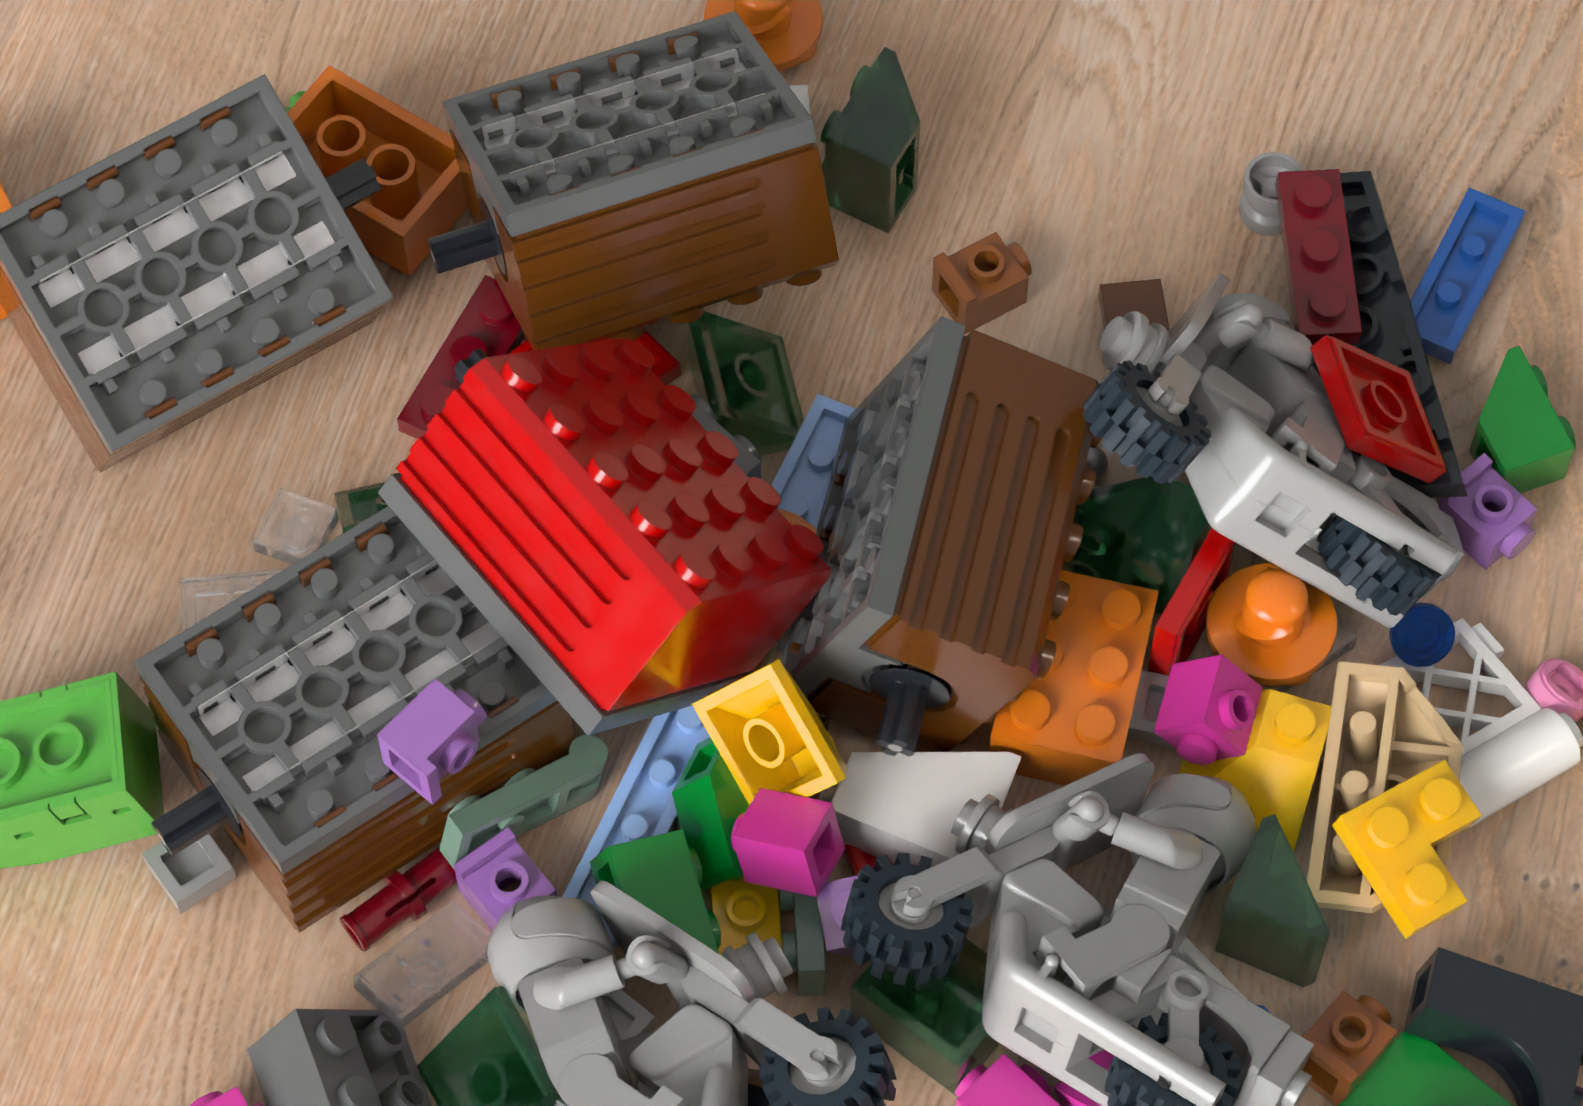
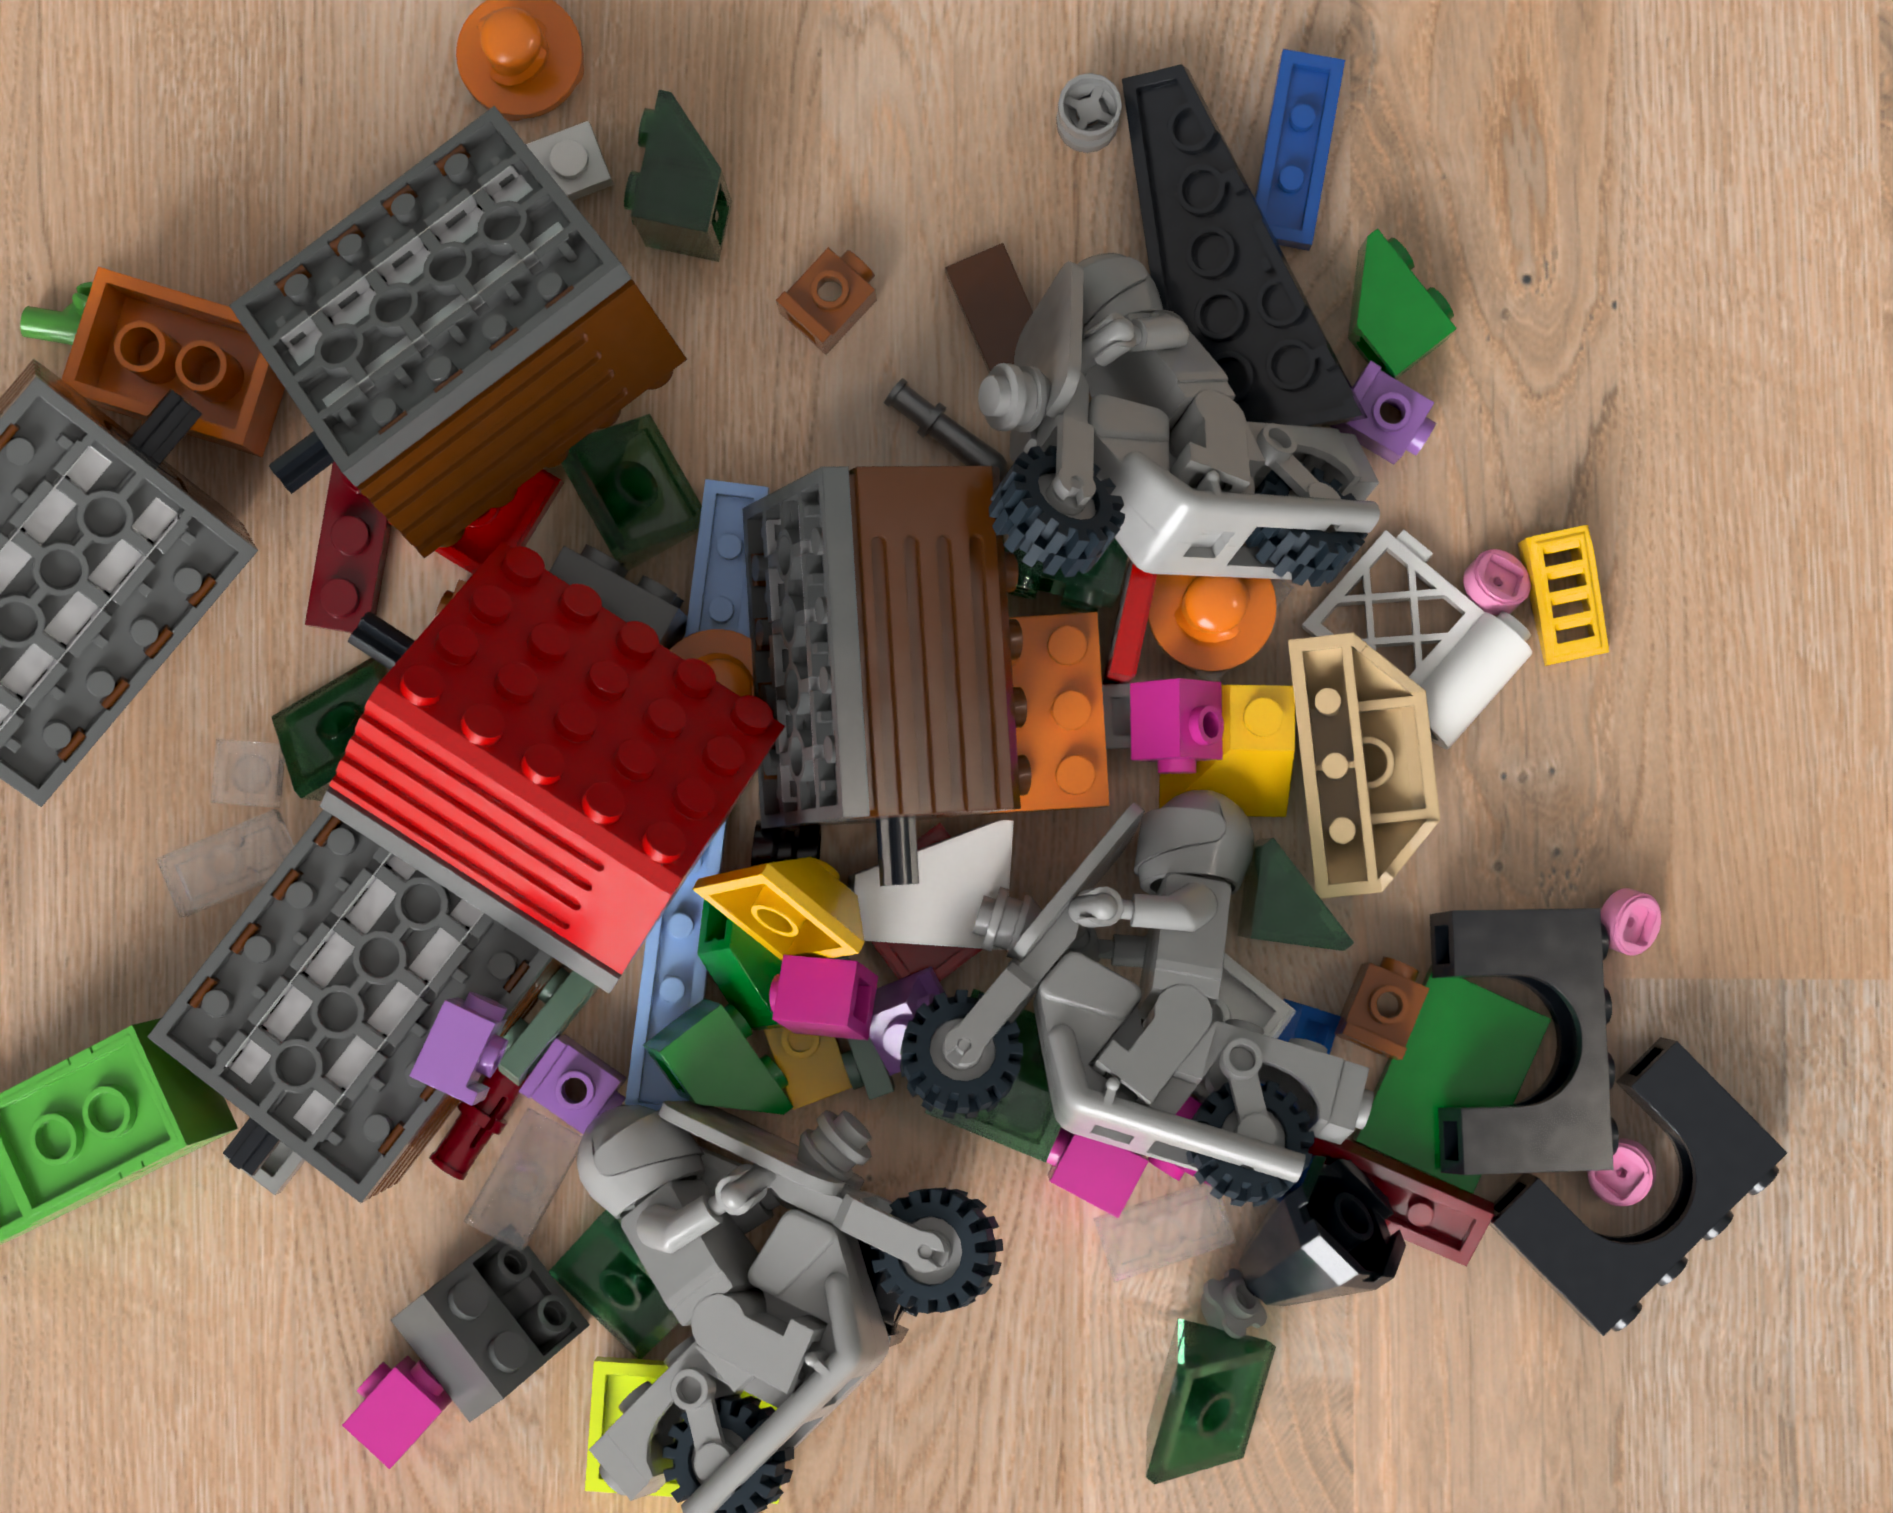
camera: 10 degrees left, 25 degrees up
(1318, 255) = (1156, 188): dark red plate -> none
(1378, 409) = (1264, 369): red tile -> none
(1395, 842) = (1387, 820): yellow plate -> none
(1423, 635) = (1360, 576): clear blue plate -> none

